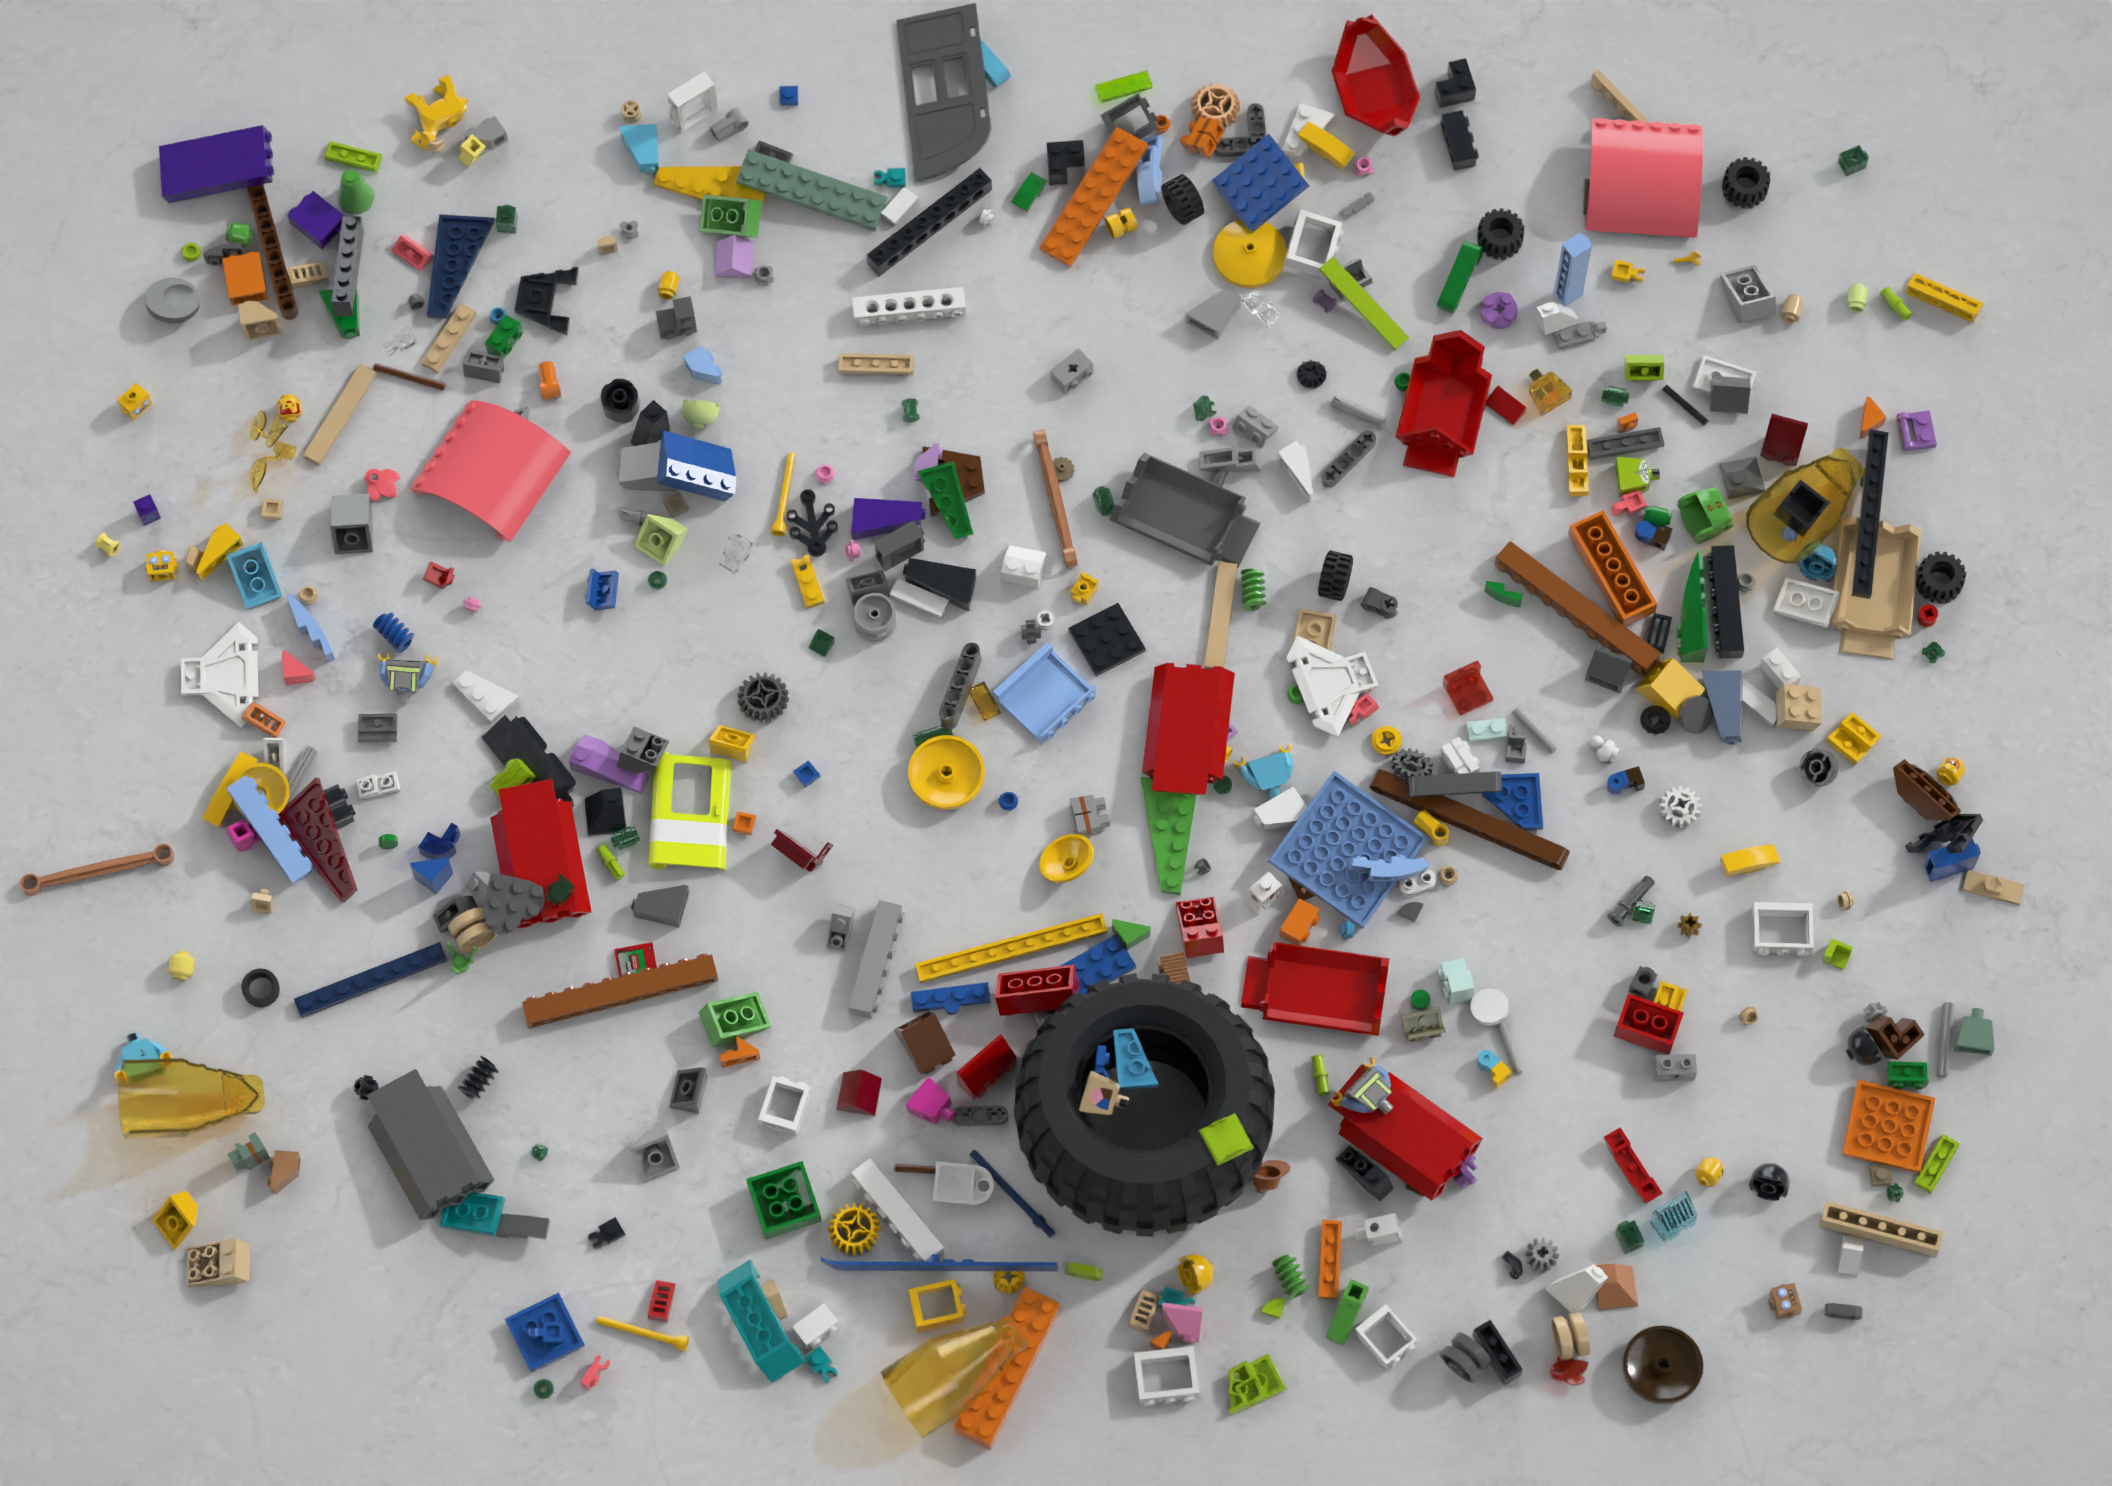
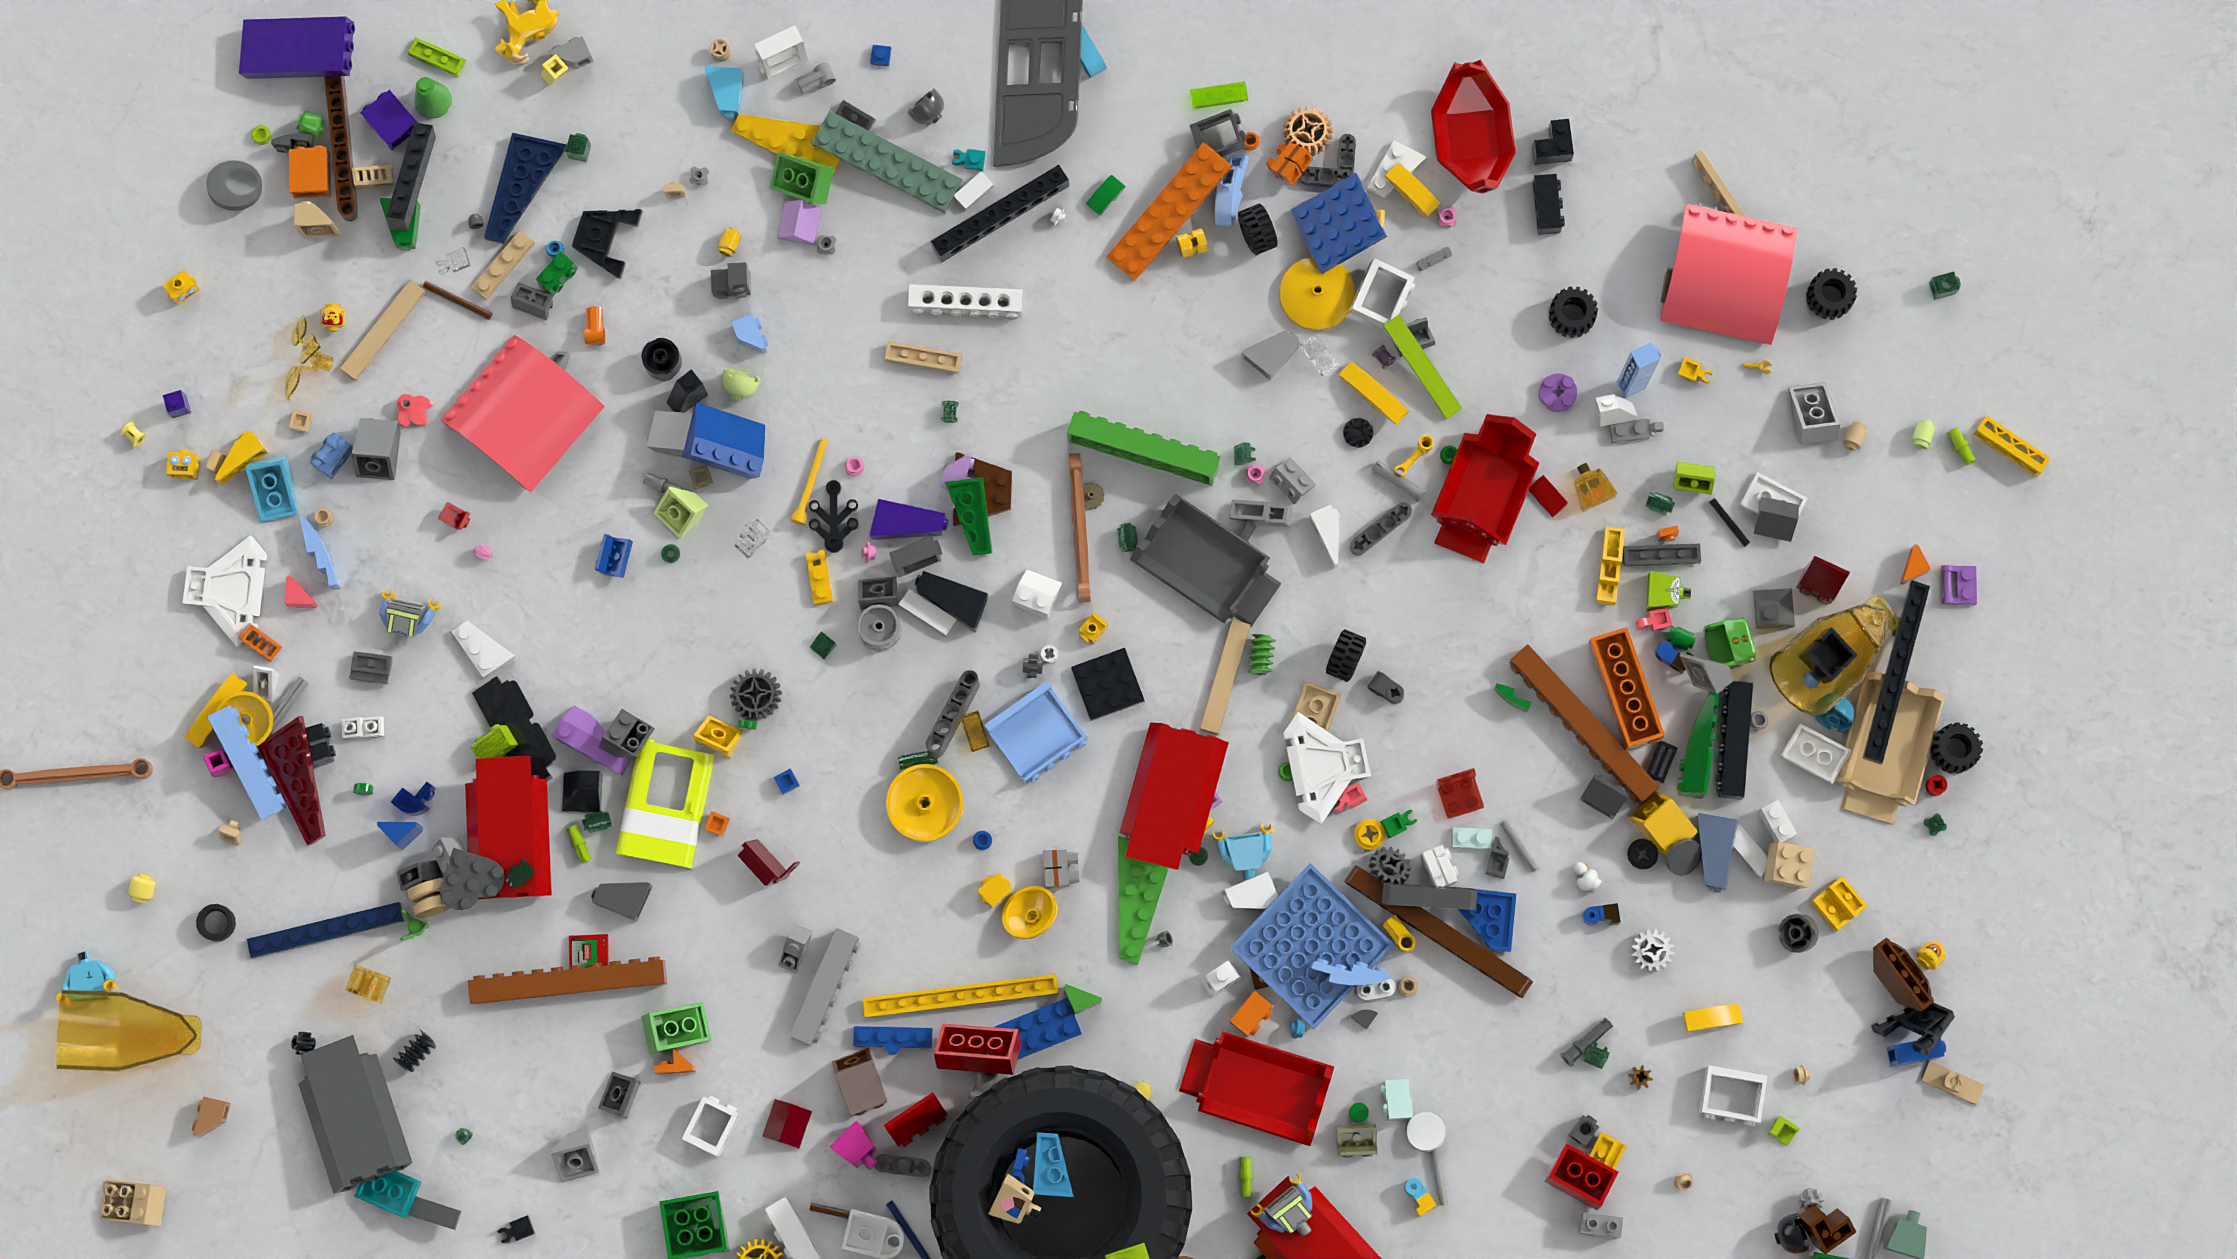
camera: 10 degrees right, 10 degrees up
(176, 1218) = (99, 1150): yellow slope -> none
(250, 1154) = (180, 1097): sand green hips -> none
(308, 535) = (331, 455): none -> medium blue brick
(393, 632) = (400, 570): blue piece -> none
(412, 252) = (480, 167): coral slope -> none
(422, 1020) = (367, 983): none -> clear yellow brick
(759, 726) = (747, 724): none -> green tile
(843, 136) = (927, 108): none -> dark grey cylinder
(1028, 843) = (994, 889): none -> yellow head
(1062, 156) = (1144, 162): black brick -> none
(1064, 372) = (1122, 385): light grey brick -> none
(1105, 415) = (1143, 447): none -> bright green brick
(1174, 966) = (1119, 1049): medium nougat brick -> none
(1200, 927) = (1151, 1002): red slope -> none
(1320, 334) = (1374, 393): none -> yellow slope
(1378, 375) = (1424, 440): none -> yellow brick
(1412, 727) = (1396, 824): none -> green plate
(1467, 258) = (1523, 352): green beam -> none
(1687, 540) = (1707, 673): none -> light grey slope

